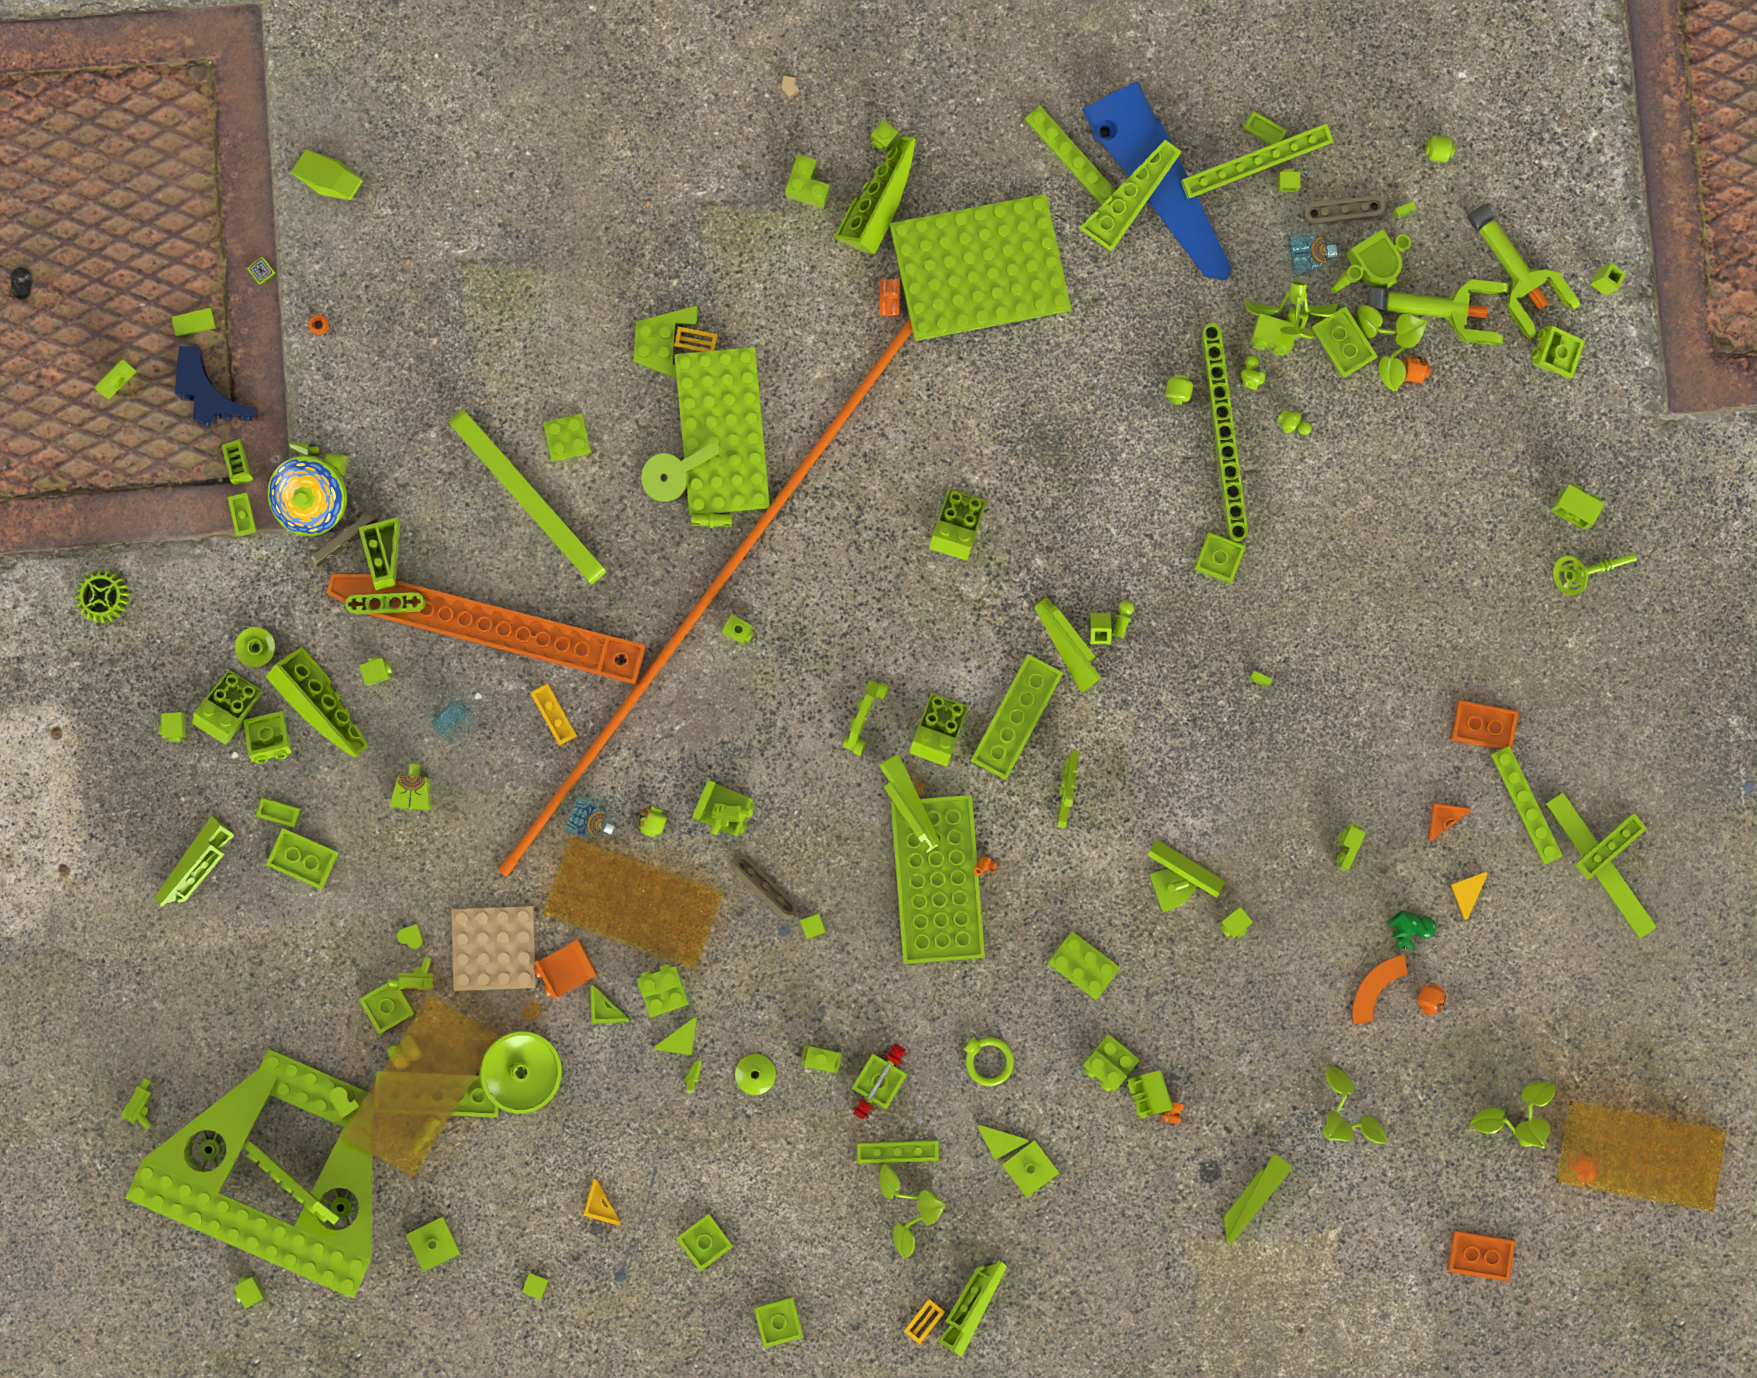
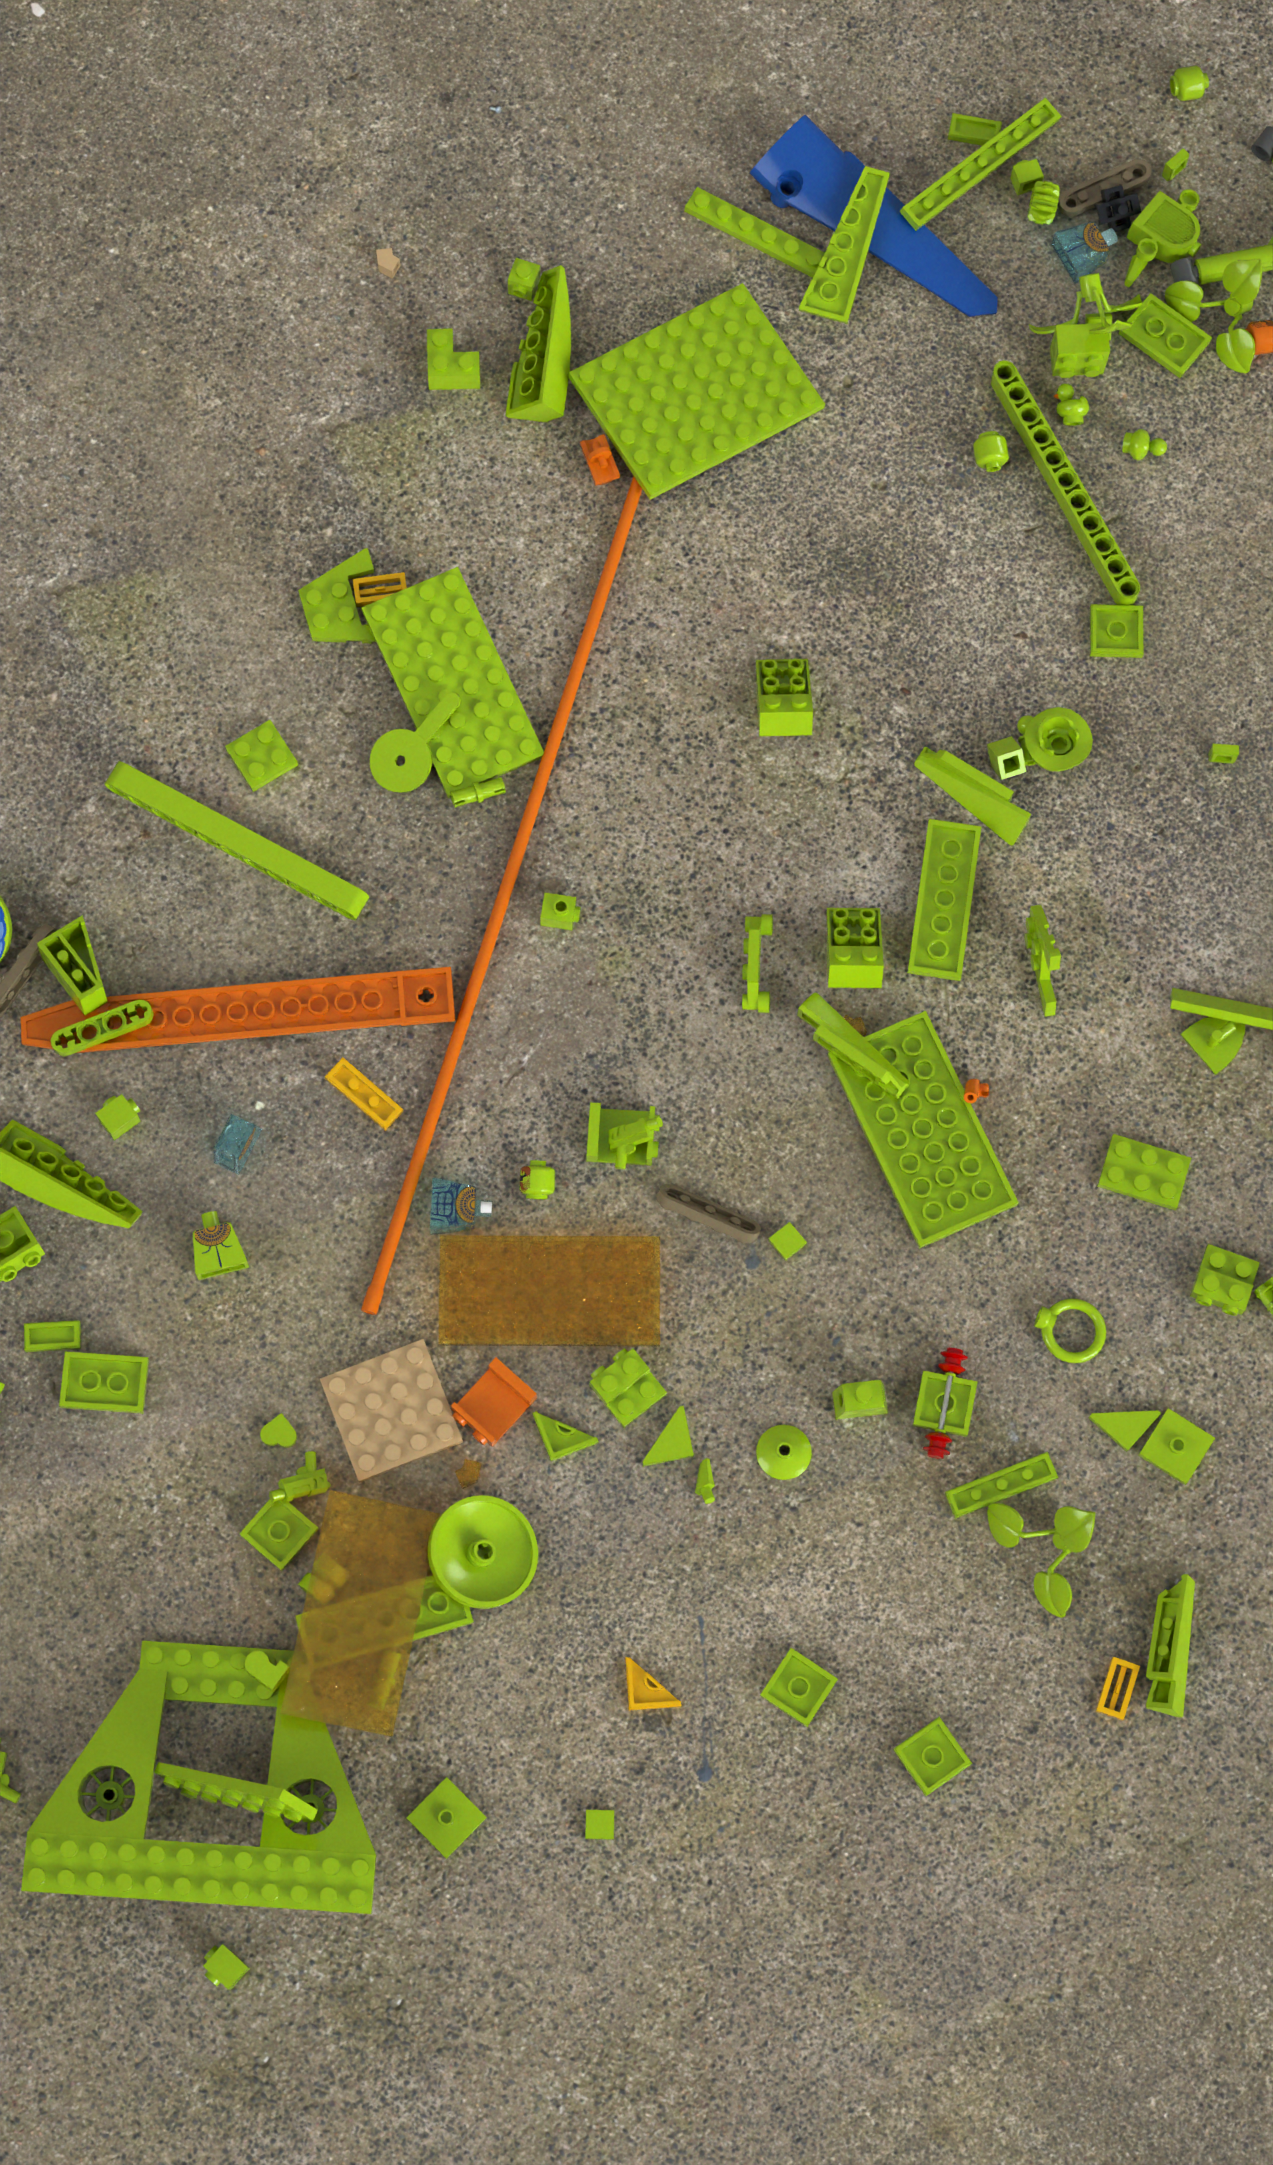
camera: 25 degrees left, 10 degrees down
(1143, 628) = (1058, 739): none -> lime hat
(1292, 208) = (1043, 202): none -> lime gear
(1348, 230) = (1119, 206): none -> black piece

